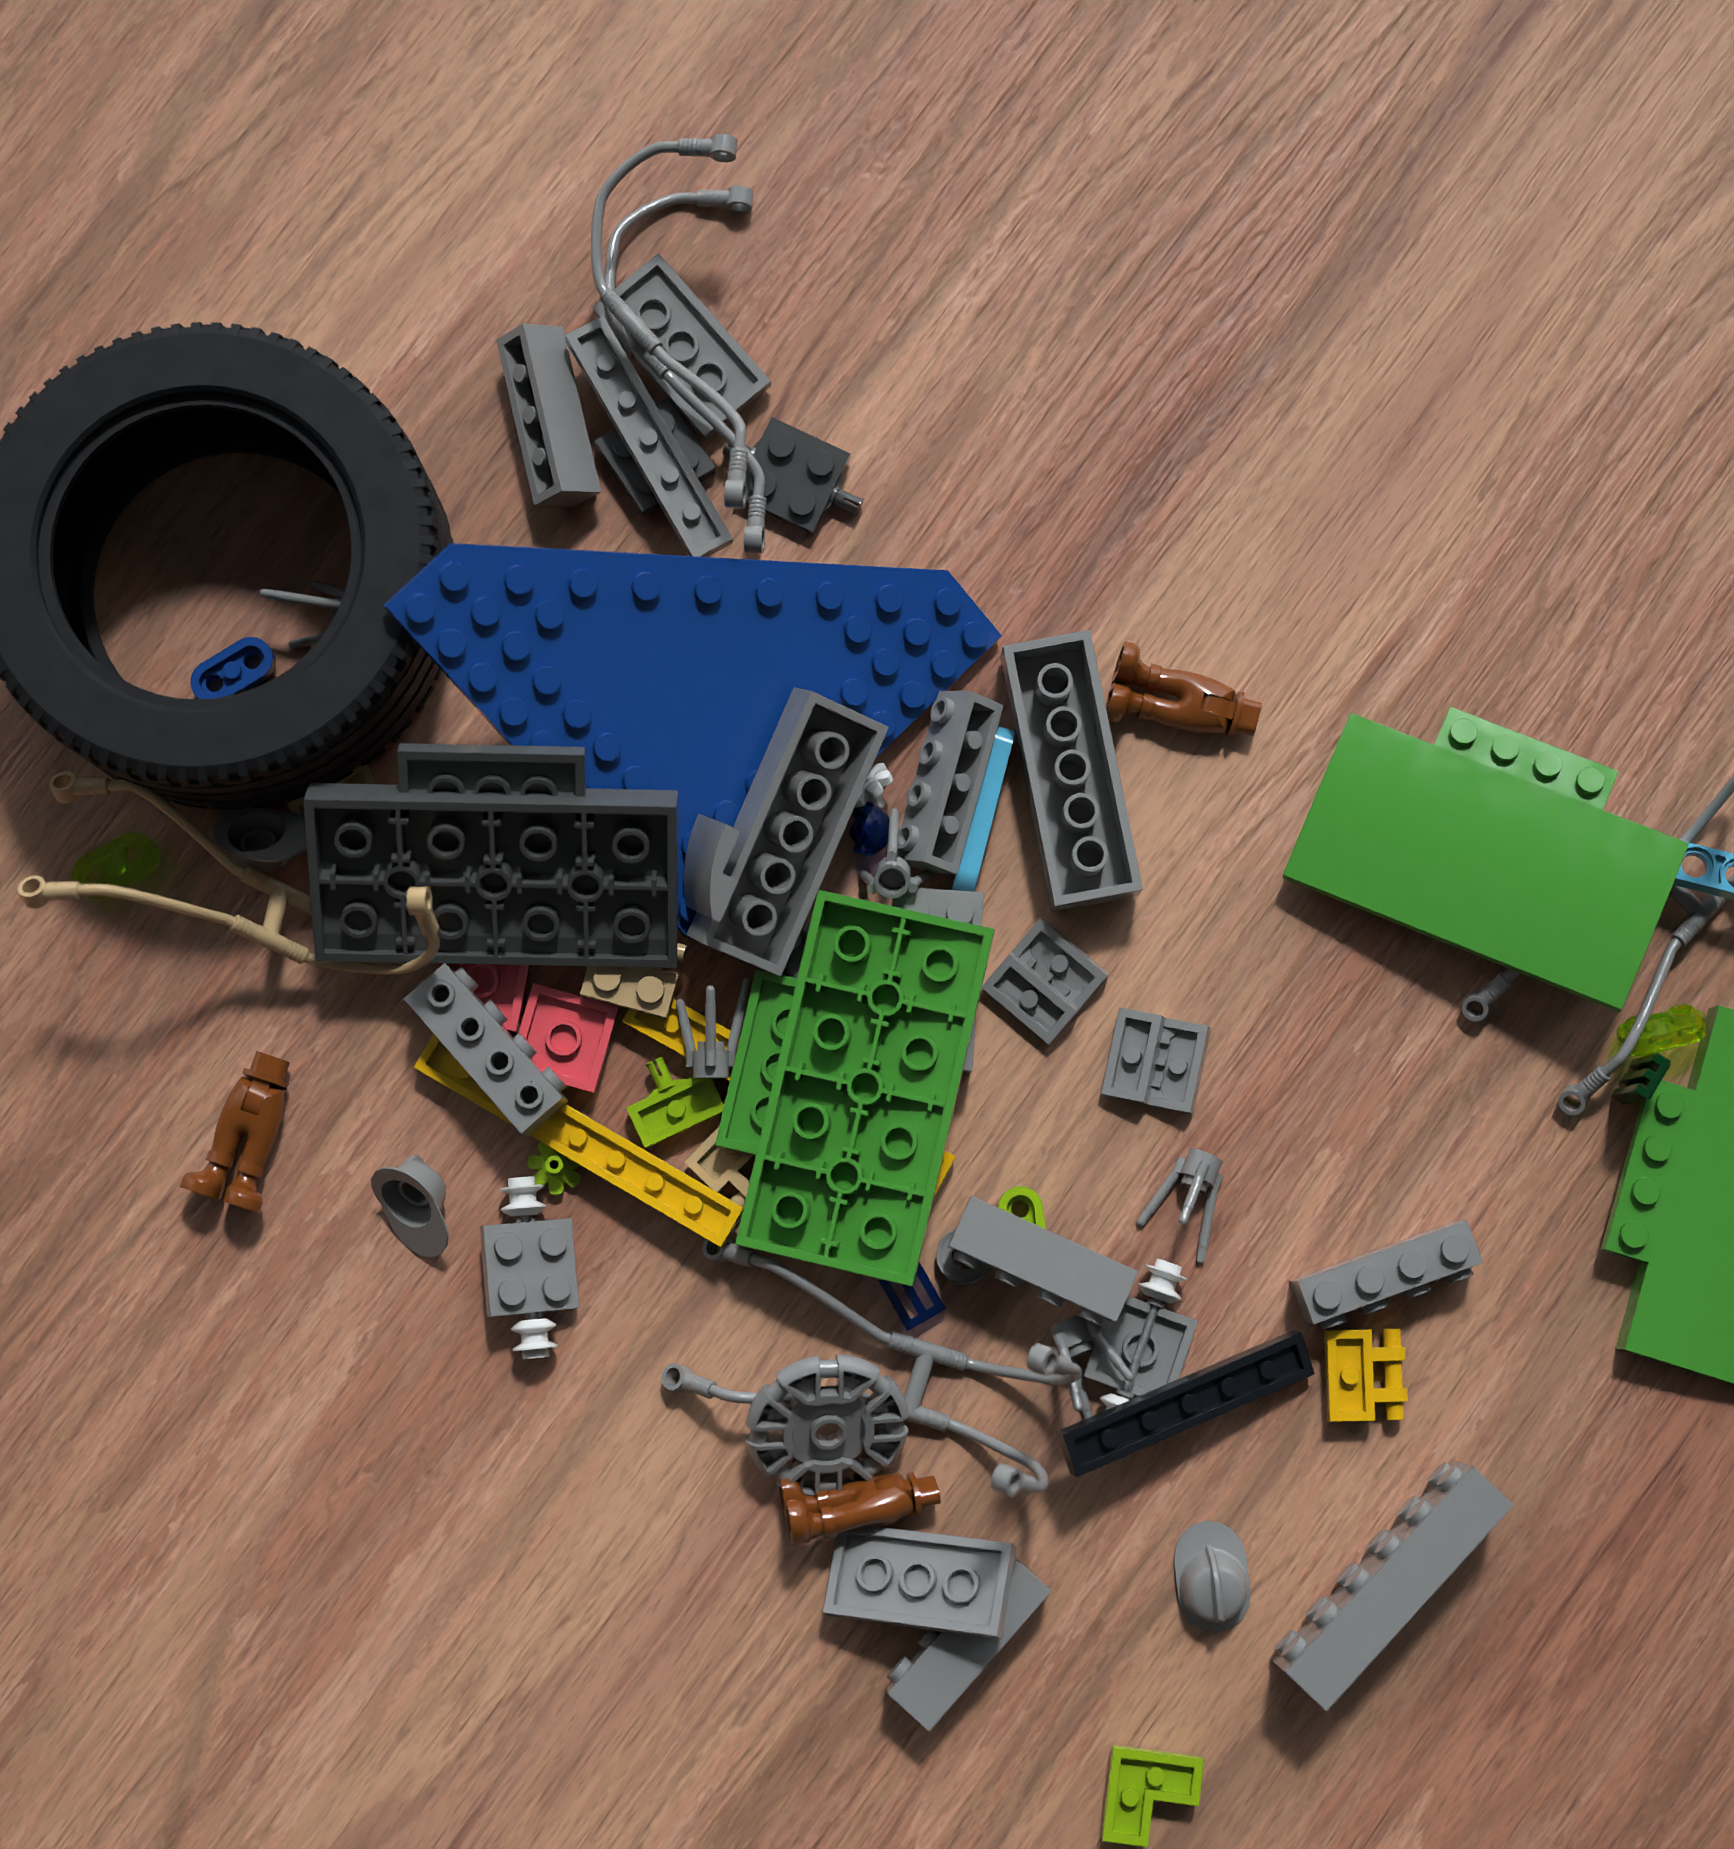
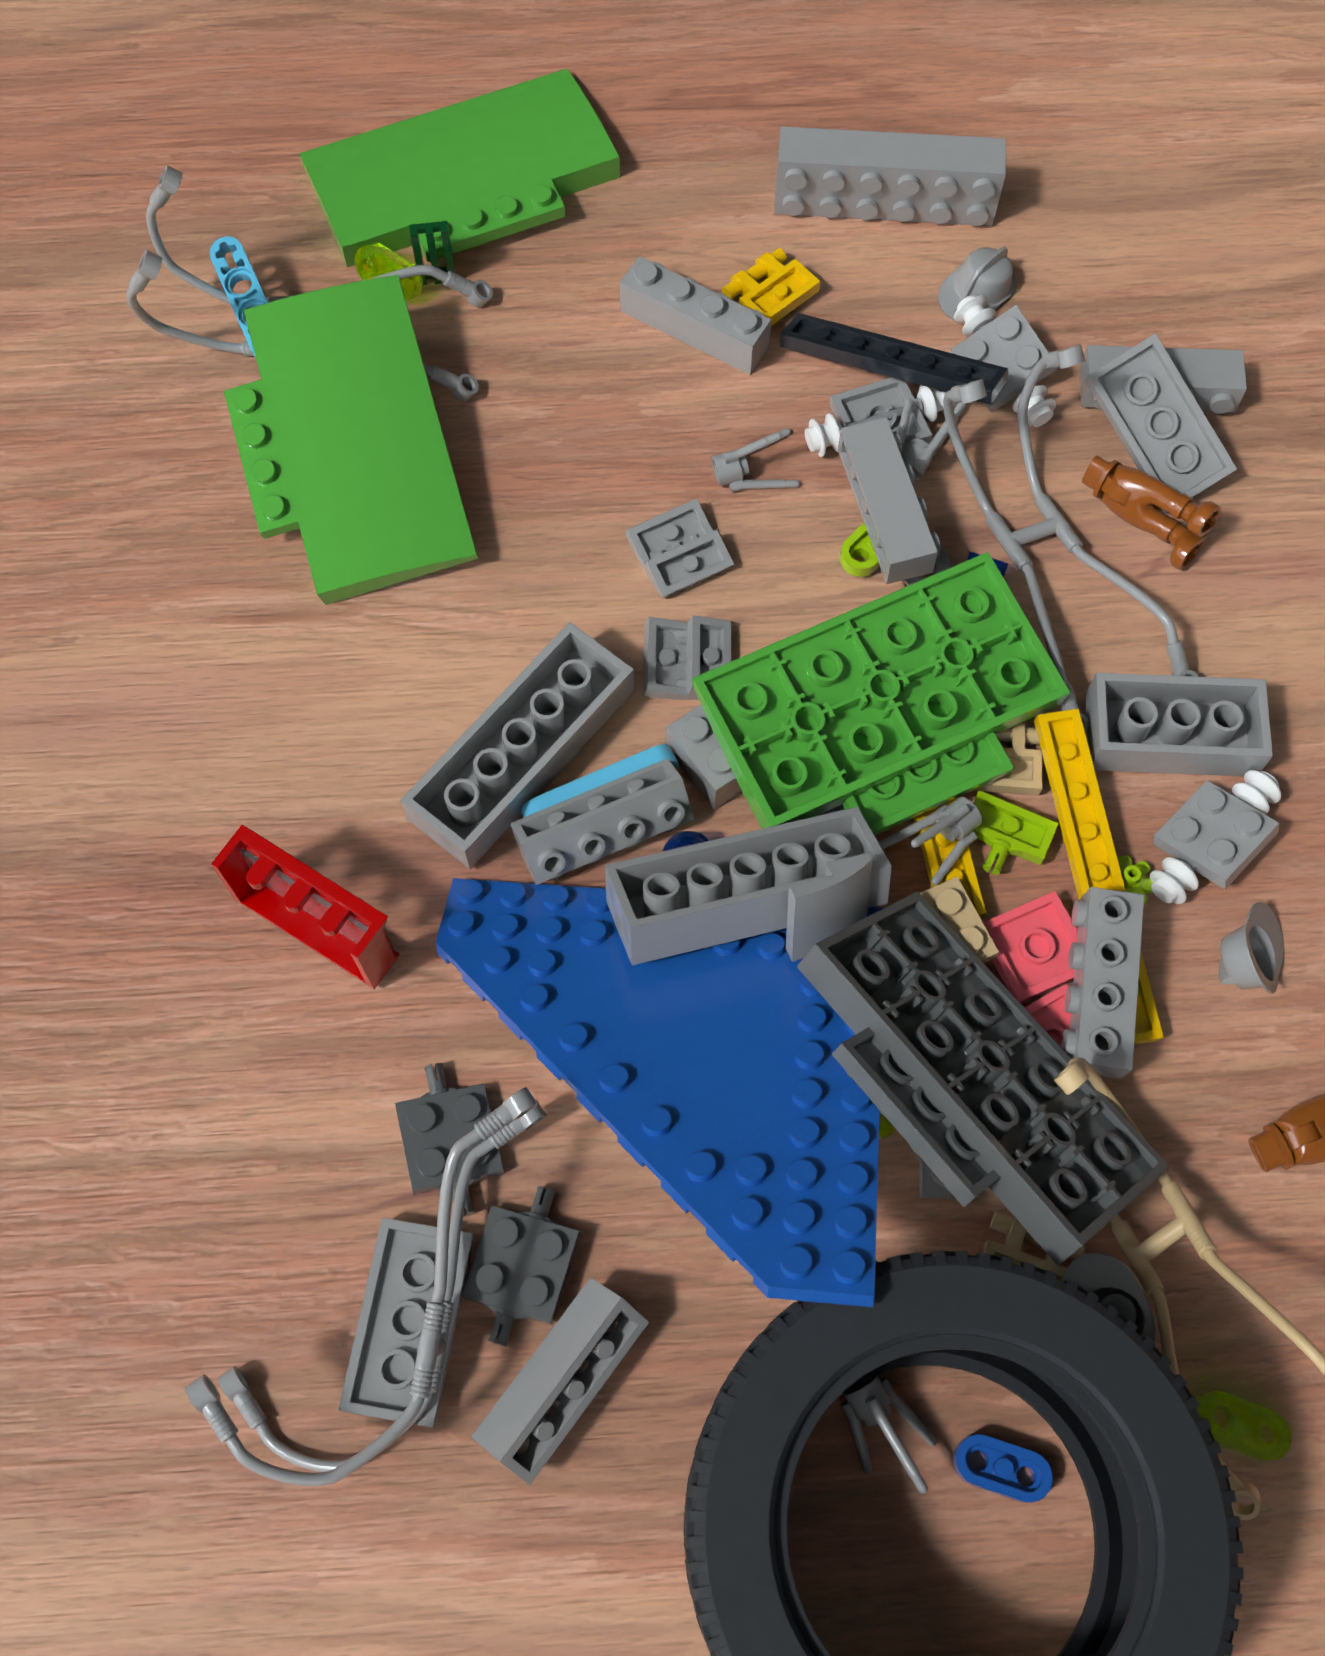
camera: 125 degrees left, 15 degrees down
(640, 1322) = (1178, 724): none -> light grey brick
(648, 439) = (513, 1273): light grey plate -> none
(818, 1405) = (1123, 553): light grey plate -> none
(892, 872) = (711, 789): light grey plant -> none
(1056, 499) = (306, 905): none -> red window
(1111, 1517) = (1009, 344): none -> light grey plate
(1136, 1780) = (1139, 237): lime plate -> none
(1202, 706) = (388, 701): dark orange piece -> none

